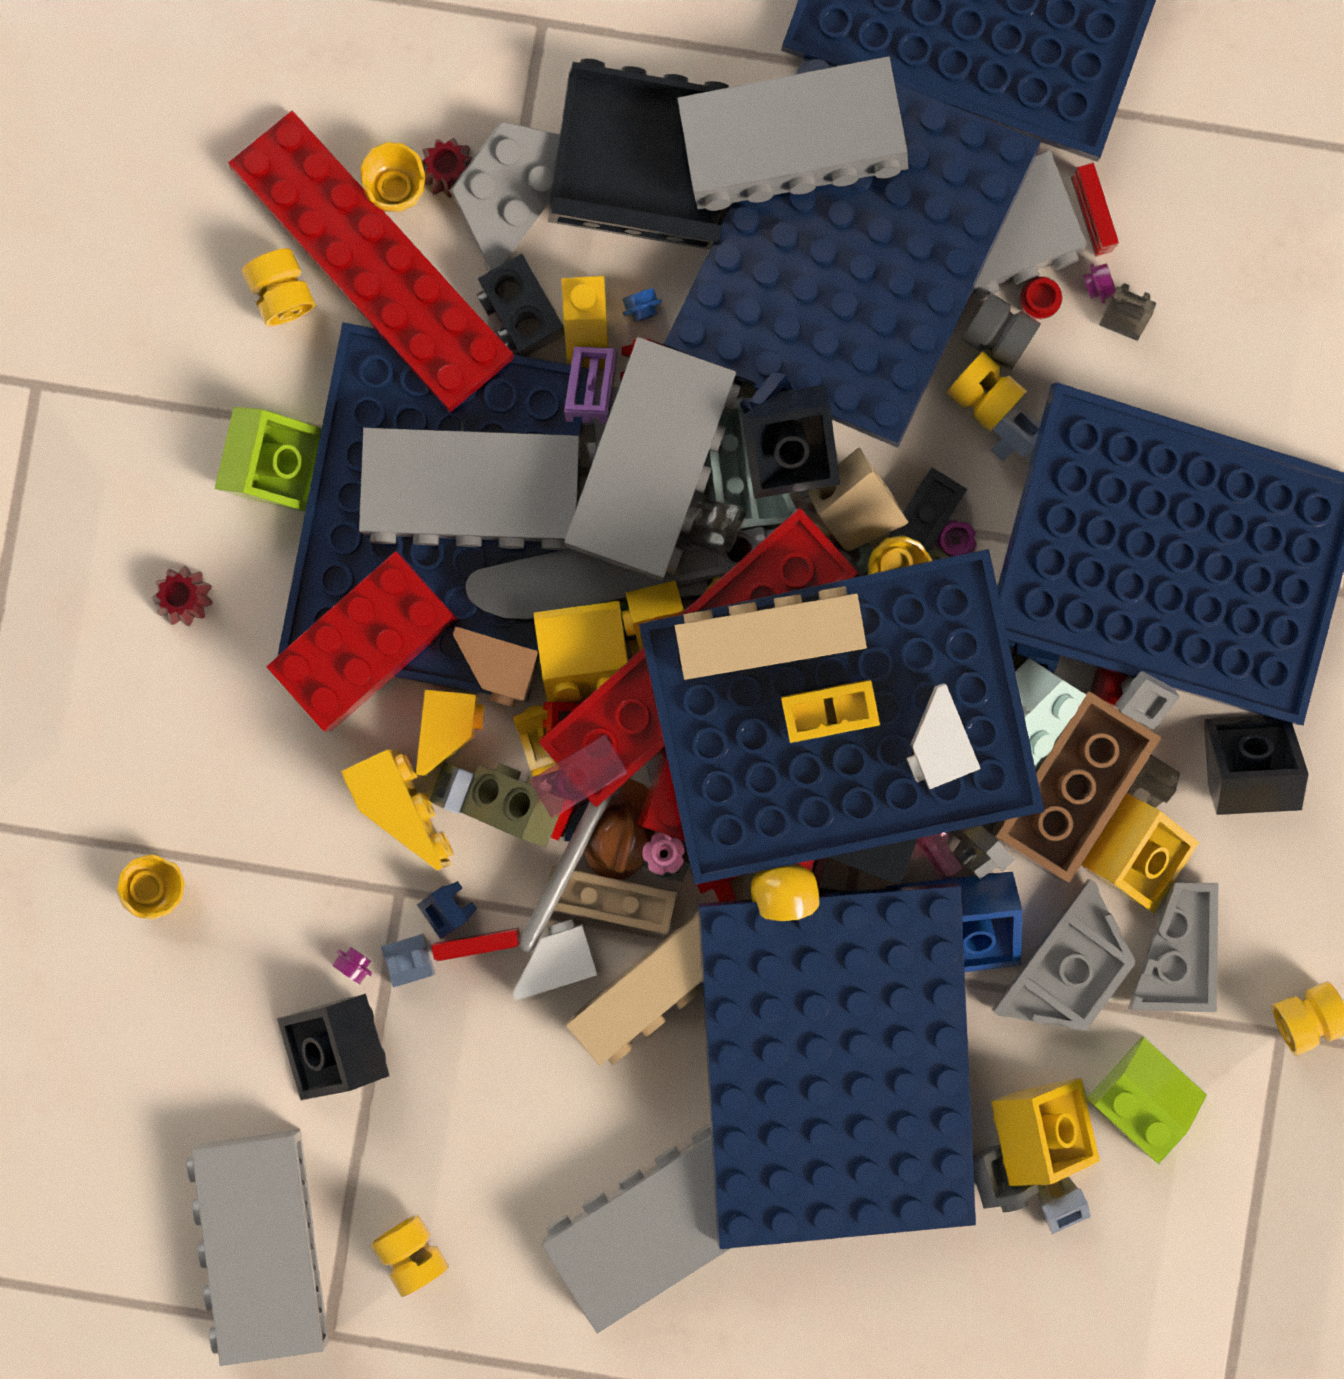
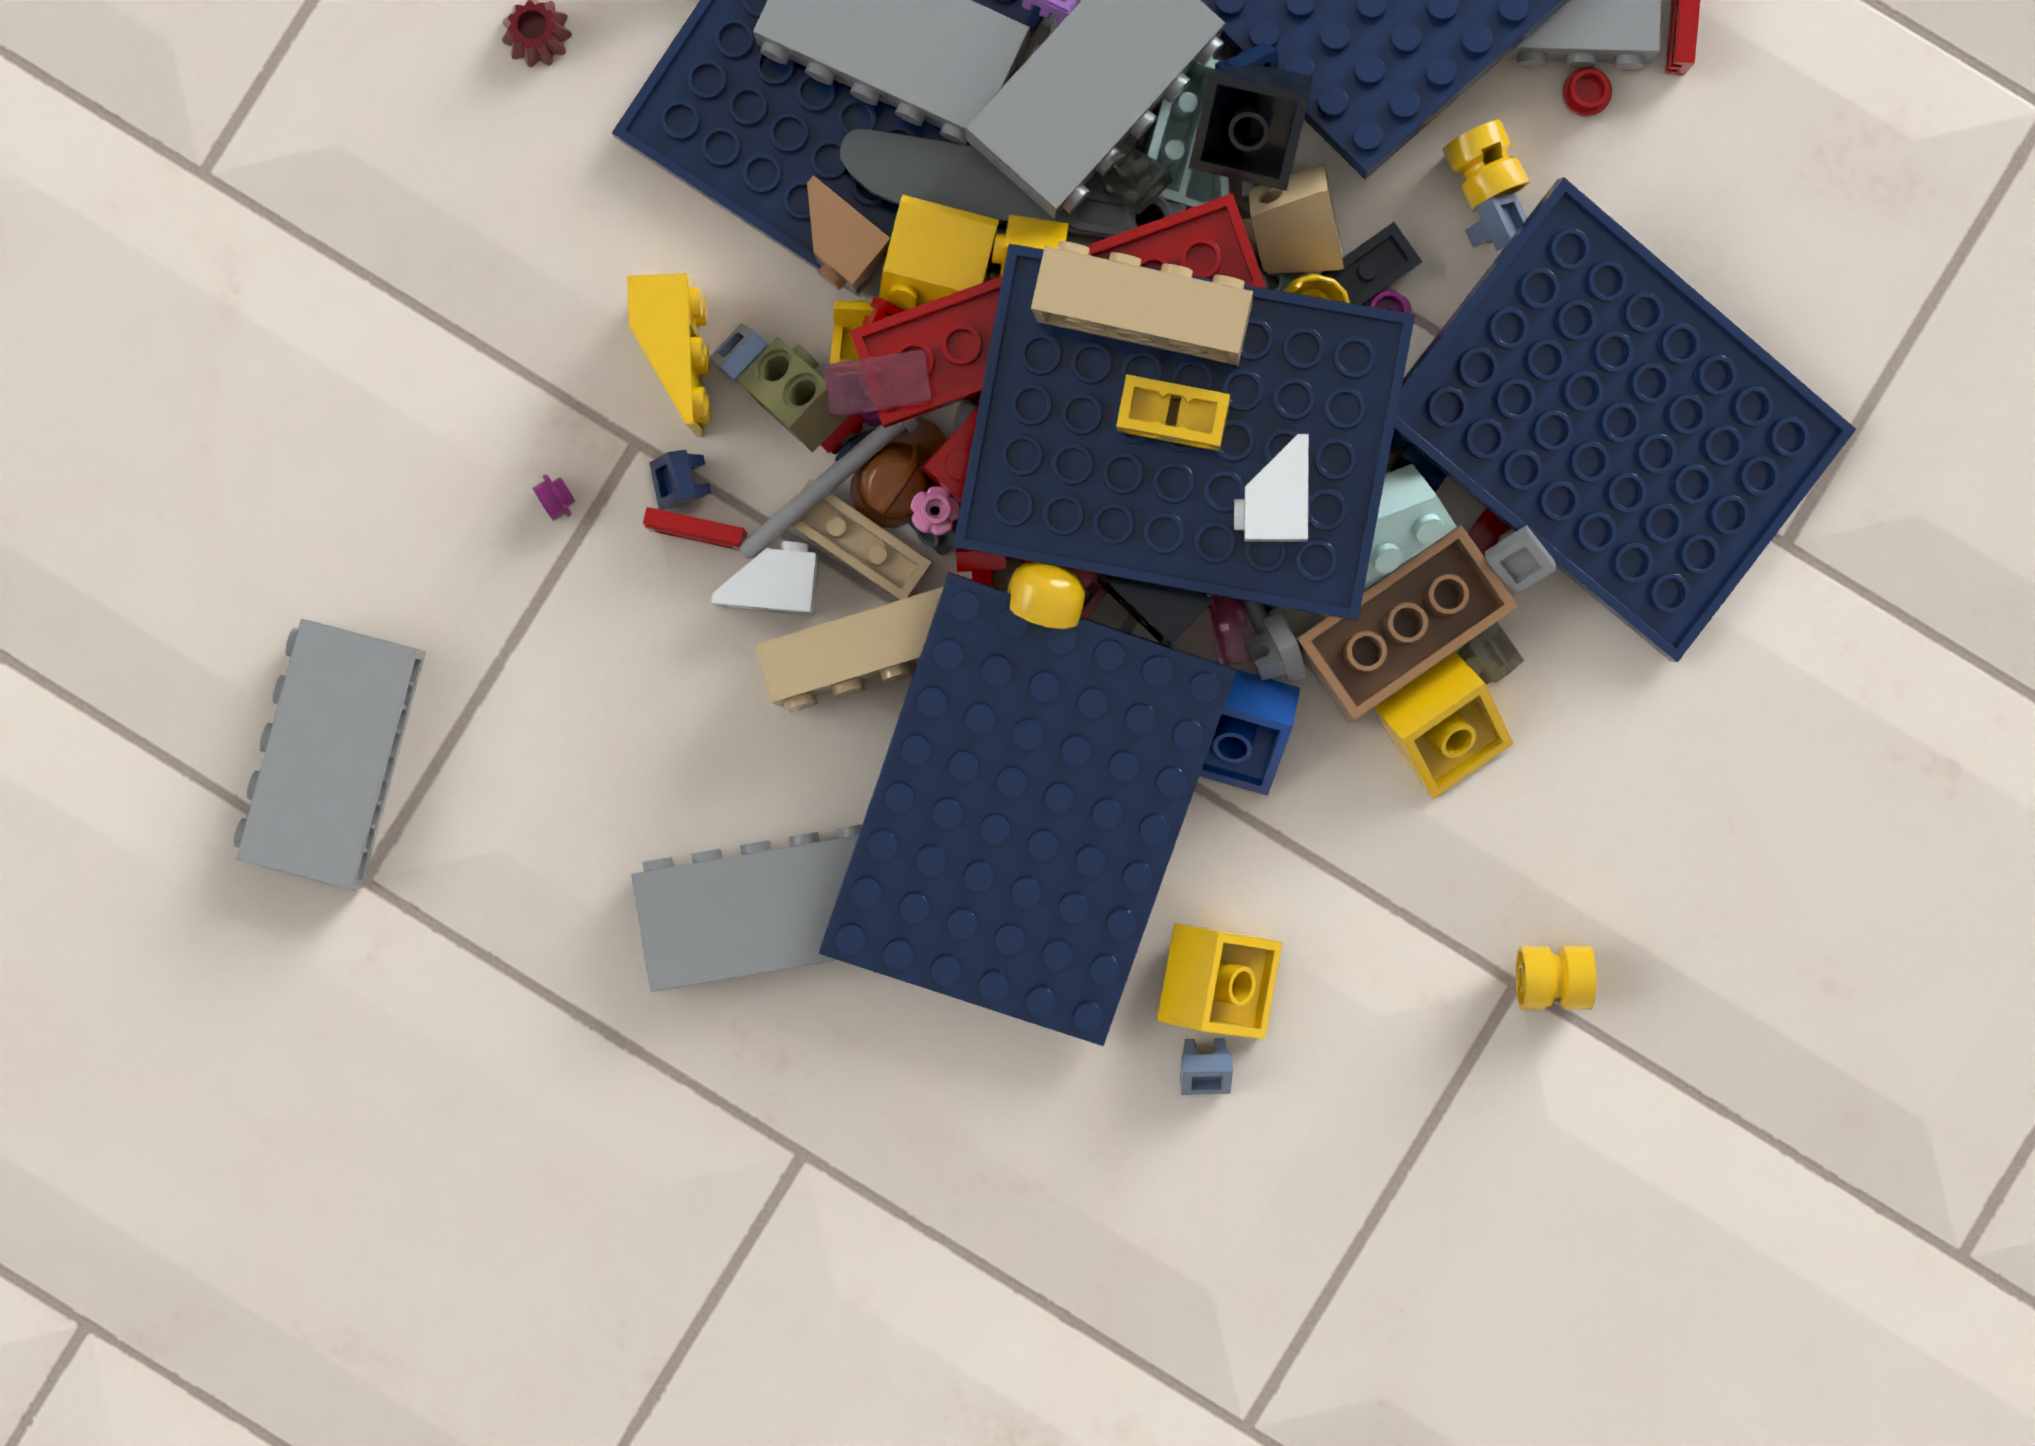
camera: 20 degrees right, 0 degrees up
(150, 887) = (373, 323): yellow hair -> none
(333, 1047) = (497, 574): black slope -> none
(361, 642) = (706, 153): red brick -> none
(405, 1240) = (488, 810): yellow wheel -> none
(408, 960) = (615, 517): sand blue tile -> none
(446, 727) = (759, 285): yellow slope -> none
(993, 1182) = (1140, 1011): dark grey bracket -> none
(1001, 331) = (1528, 107): dark grey wheel -> none
(1071, 968) = (1320, 819): light grey wing -> none
(1100, 282) = (1657, 101): magenta plate -> none
(1128, 312) = (1673, 144): clear smoke tile -> none
(1149, 1100) = (1344, 993): lime slope -> none
(1182, 953) = (1446, 852): light grey wing -> none
(1254, 765) = (1606, 684): black slope -> none

